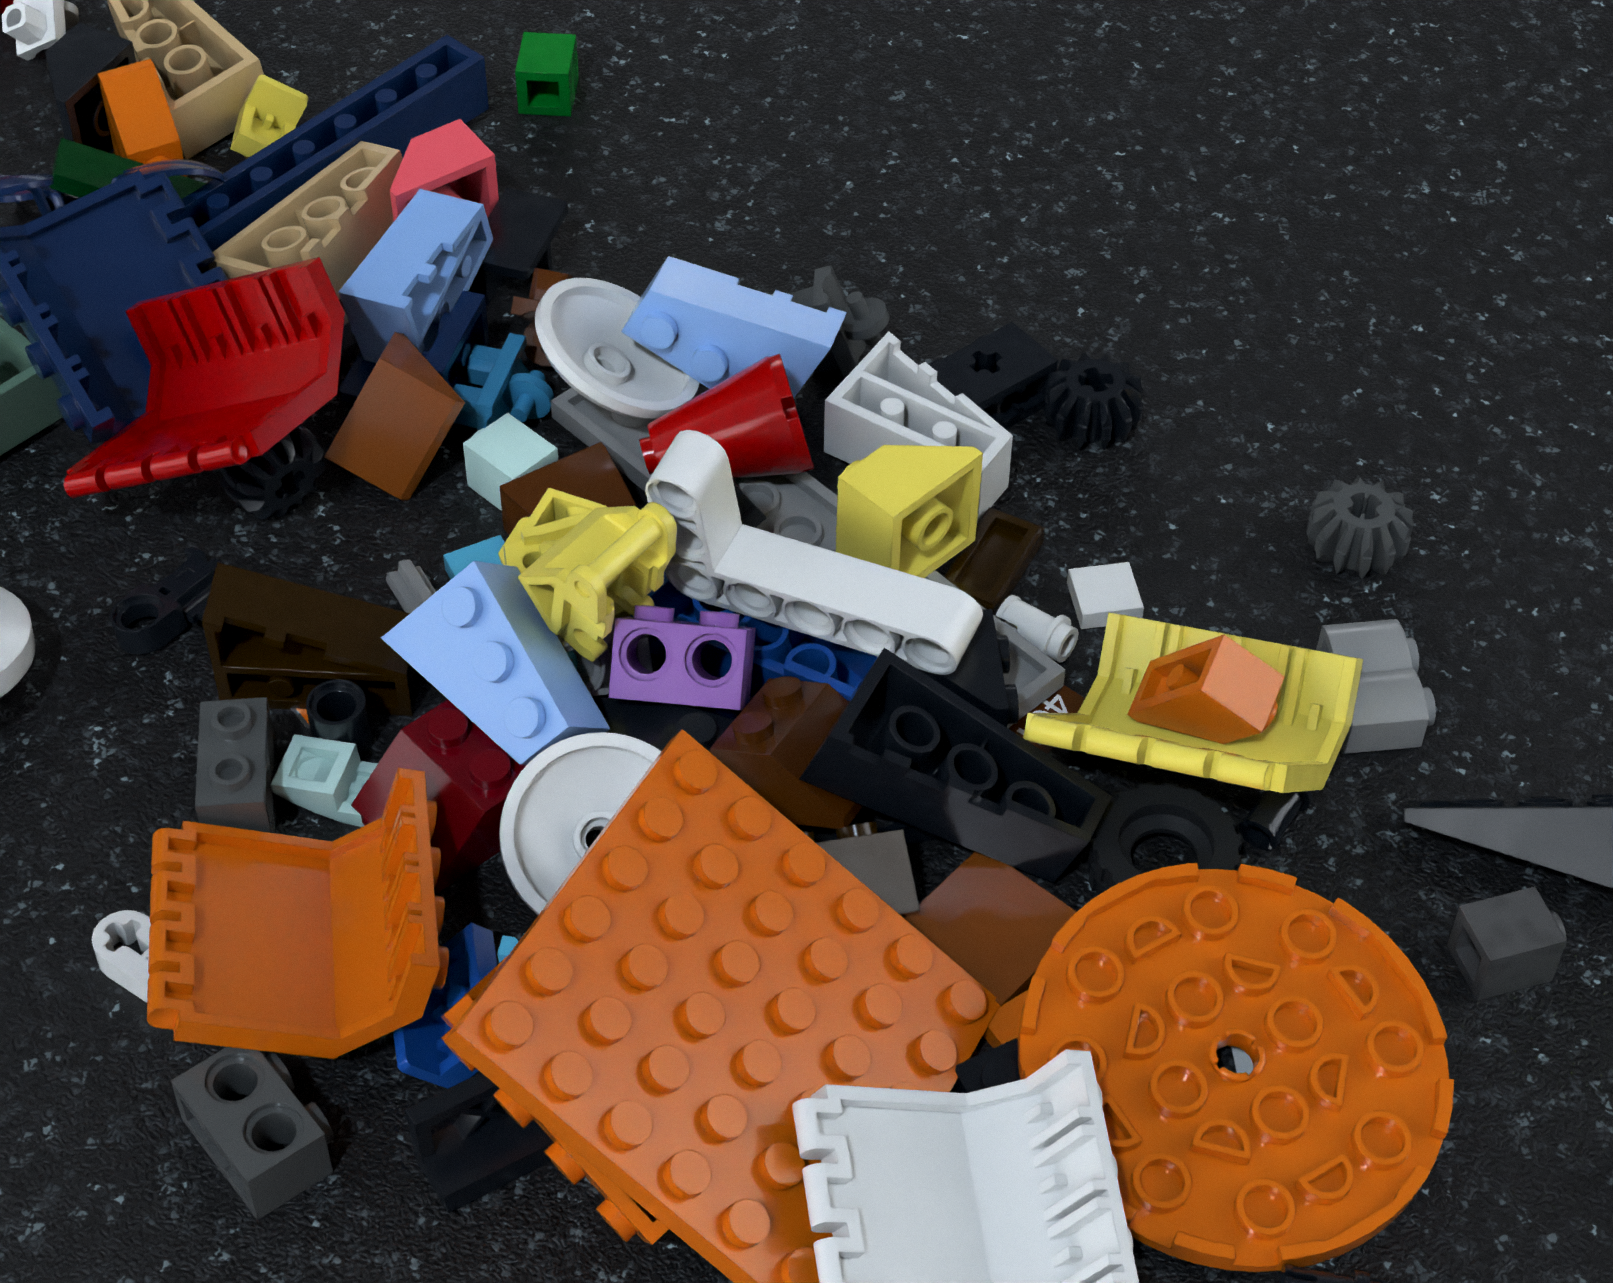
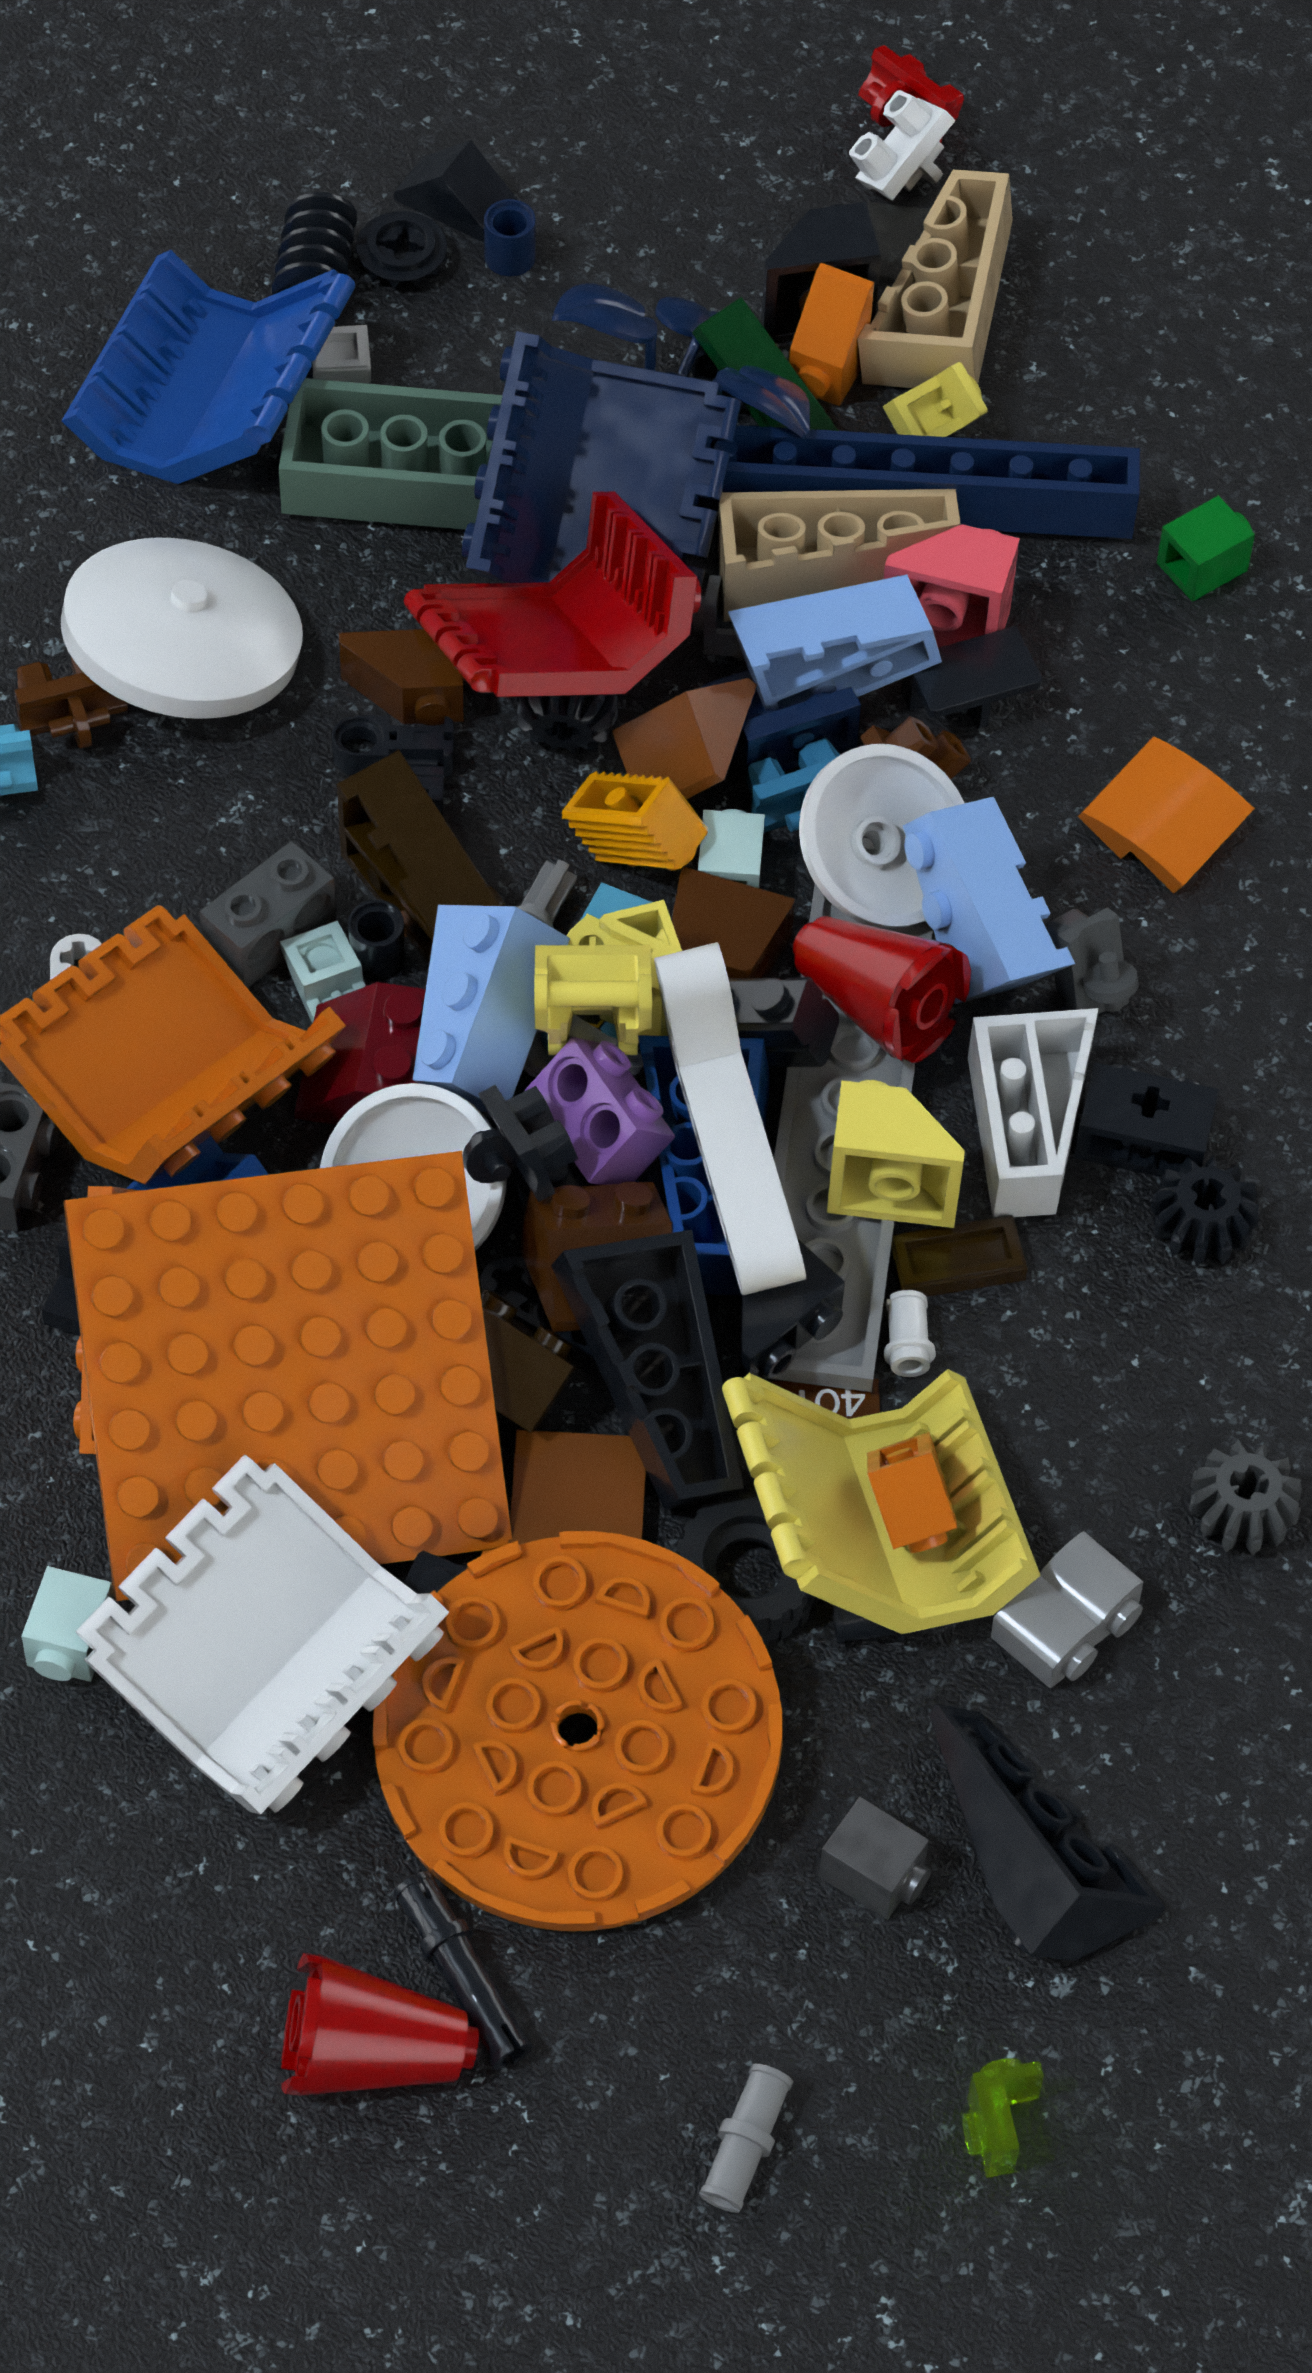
camera: 50 degrees right, 10 degrees up
(117, 547) = (403, 675): none -> reddish brown slope
(429, 485) = (635, 820): none -> light orange brick
(656, 715) = (522, 1139): none -> black hips
(735, 221) = (1166, 812): none -> orange slope
(1103, 591) = (998, 1360): white tile -> none

